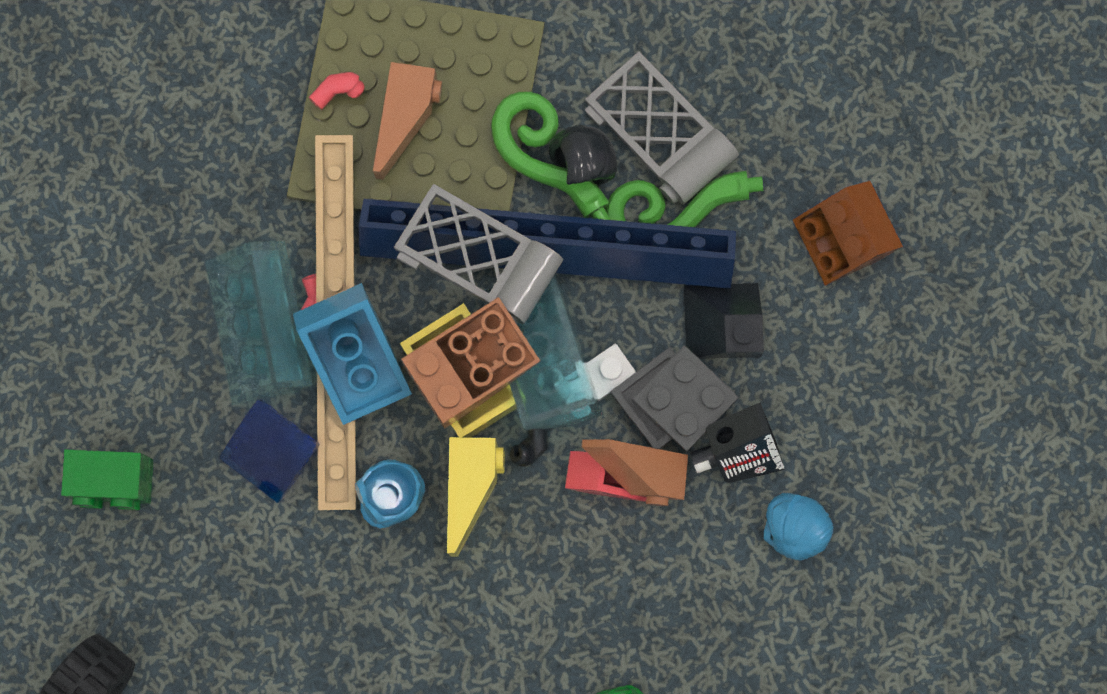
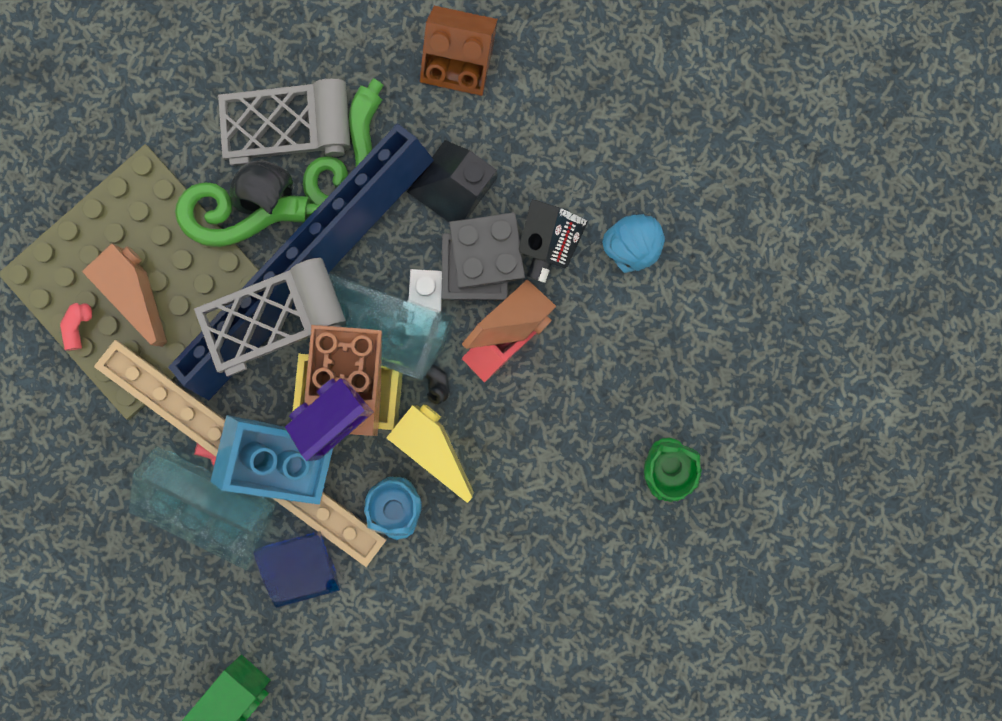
camera: 55 degrees left, 5 degrees up
(430, 374) = (327, 420): none -> dark purple slope

